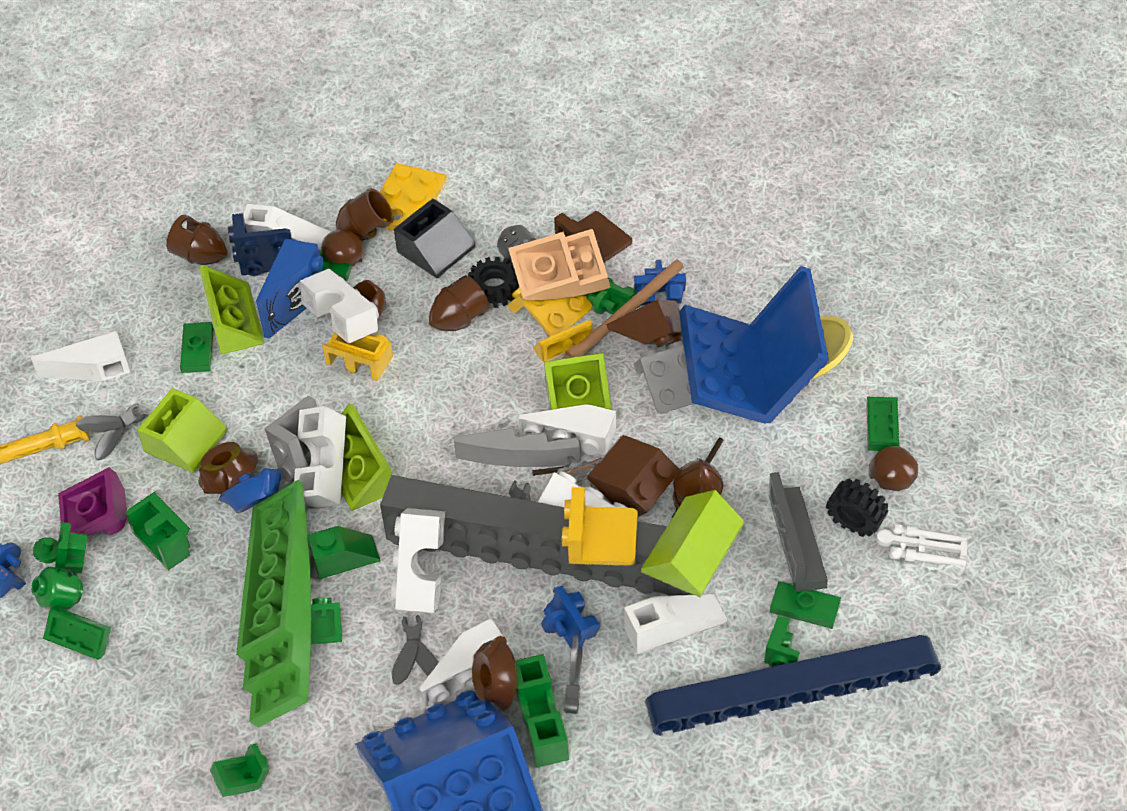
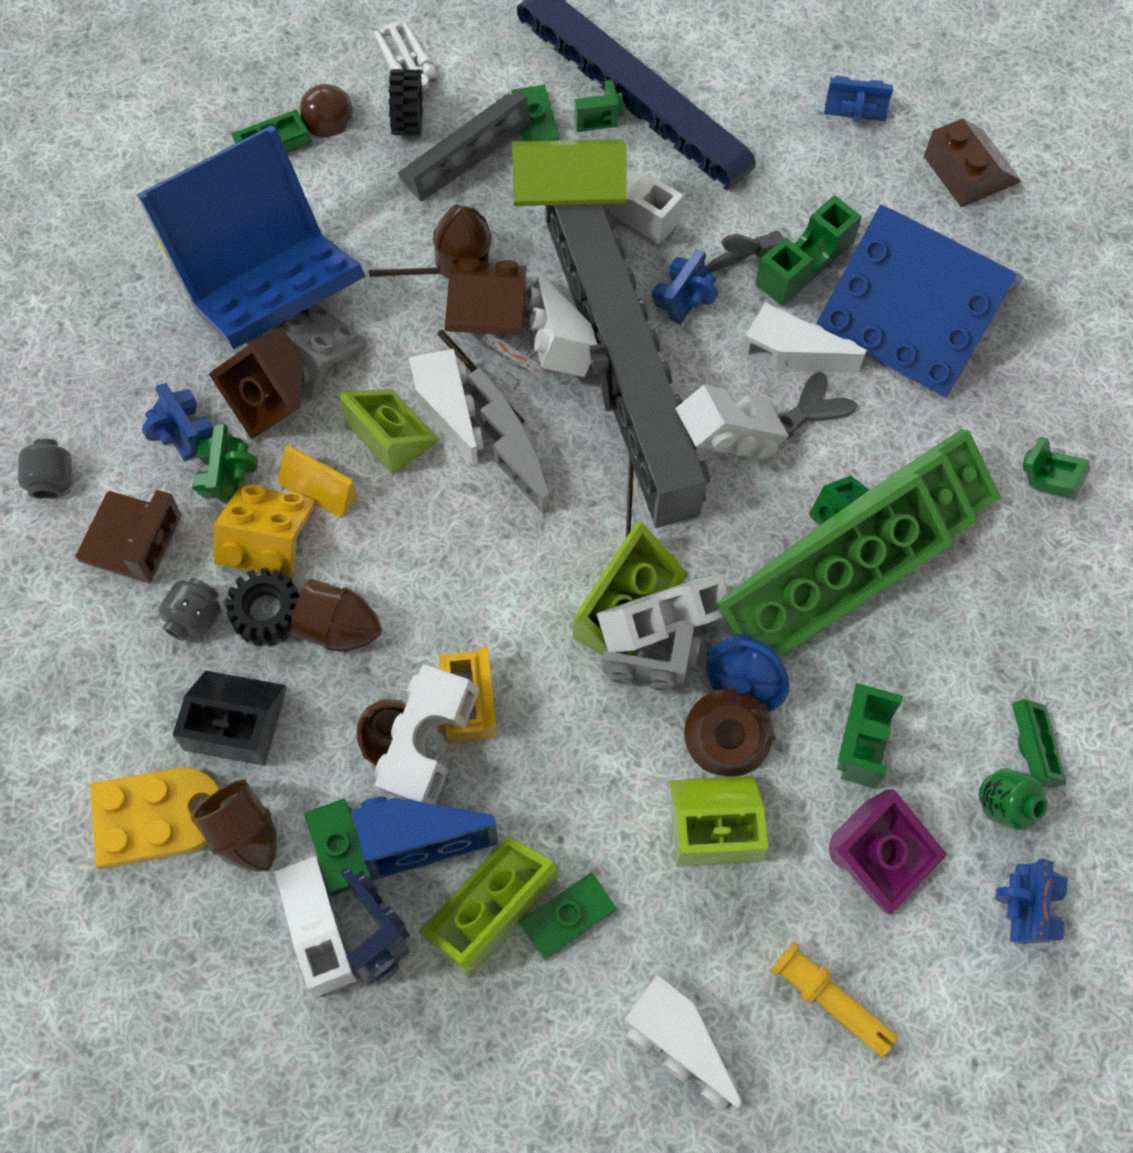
camera: 125 degrees left, 15 degrees up
(66, 552) = (971, 824): green hips -> none
(112, 428) = (765, 923): dark grey piece -> none
(196, 243) = (395, 1060): reddish brown helmet -> none
(341, 550) = (752, 534): green slope -> none
(342, 247) = (305, 825): reddish brown hair -> none
(495, 673) = (813, 280): reddish brown piece -> none
(559, 266) = (229, 500): light nougat slope -> none
(599, 533) = (614, 244): yellow bracket -> none
(636, 301) = (331, 457): medium nougat bar -> none
(668, 213) = (44, 469): none -> dark grey head

